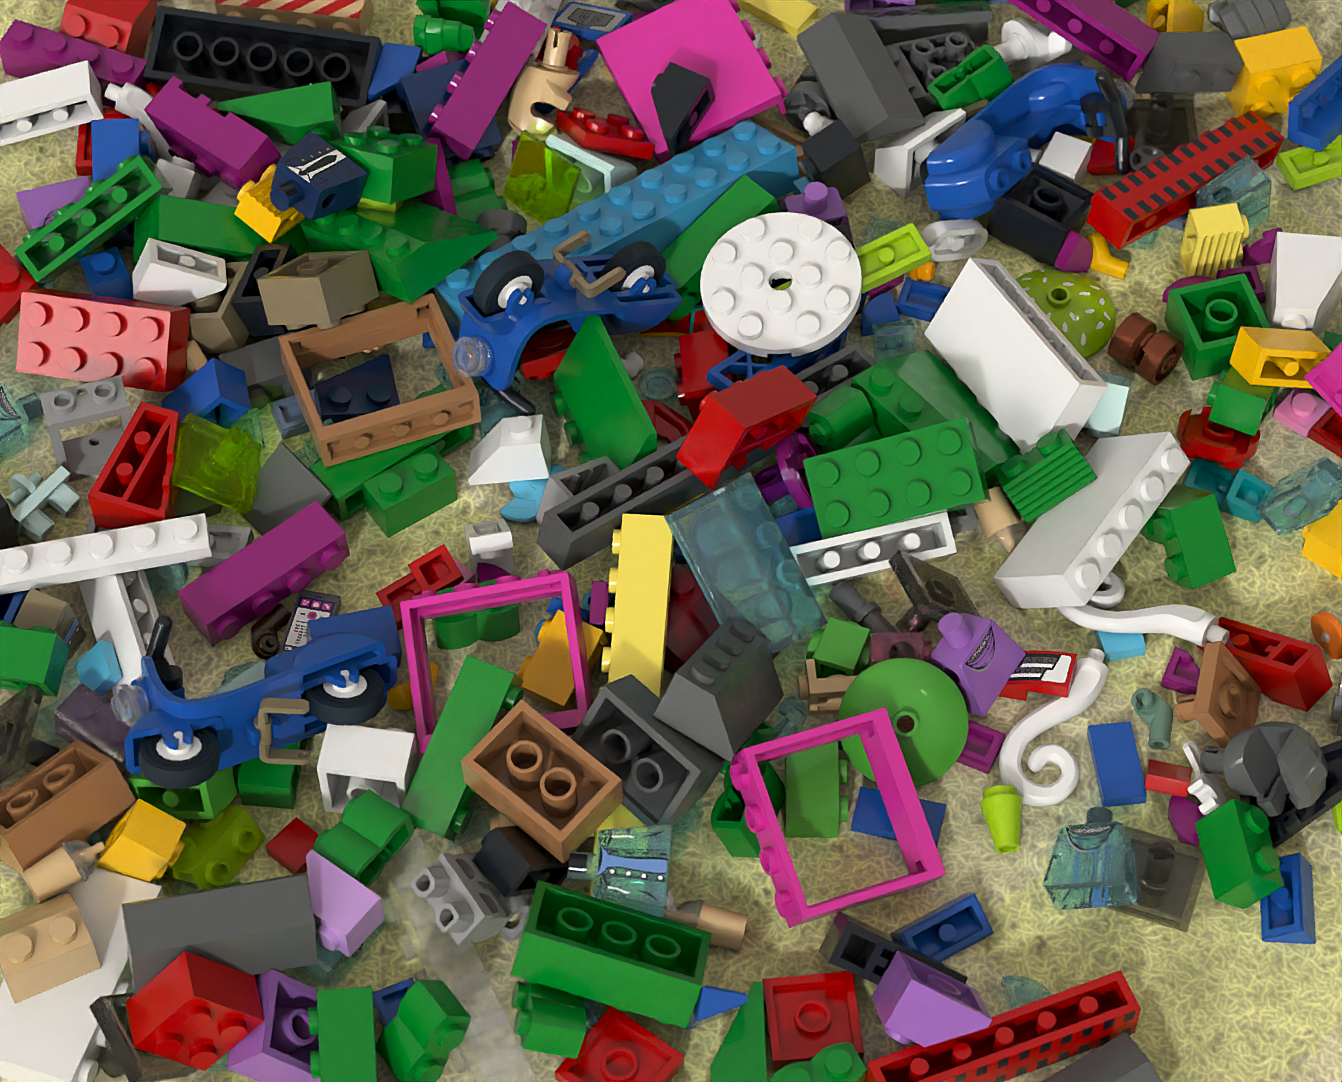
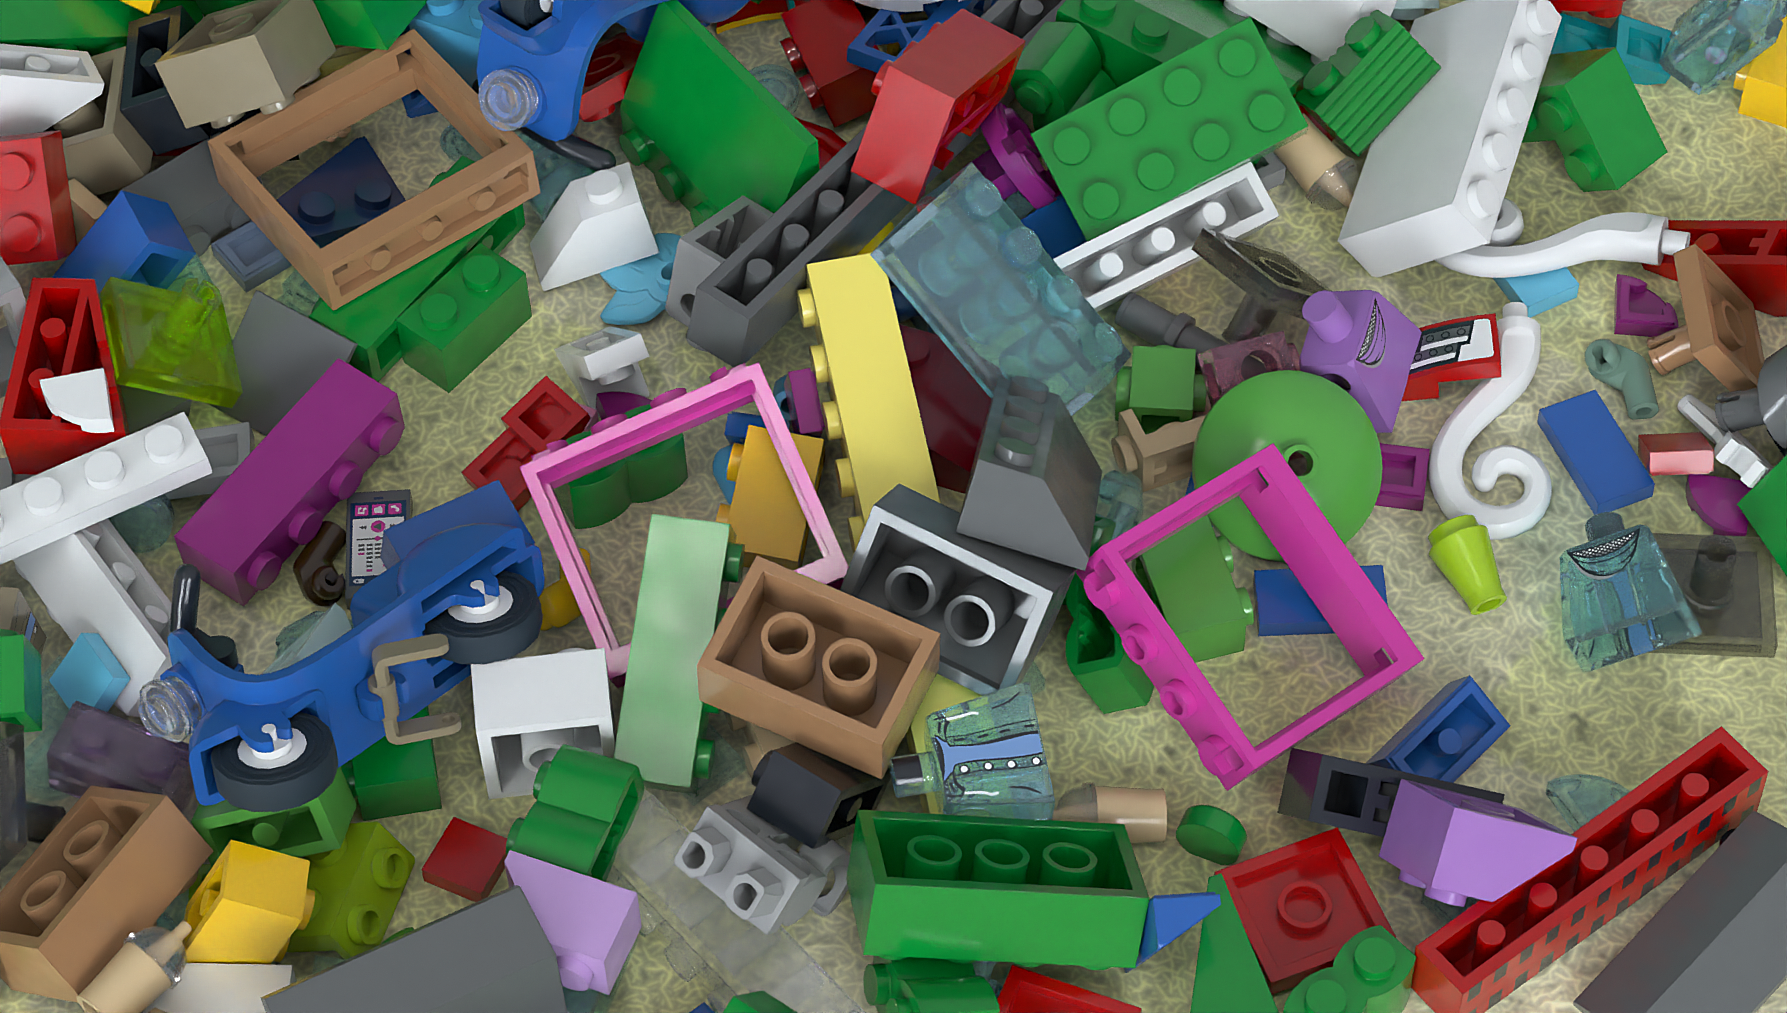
camera: 15 degrees left, 0 degrees up
(143, 490) = (81, 399): none -> white tile
(770, 953) = (1211, 834): none -> green tile

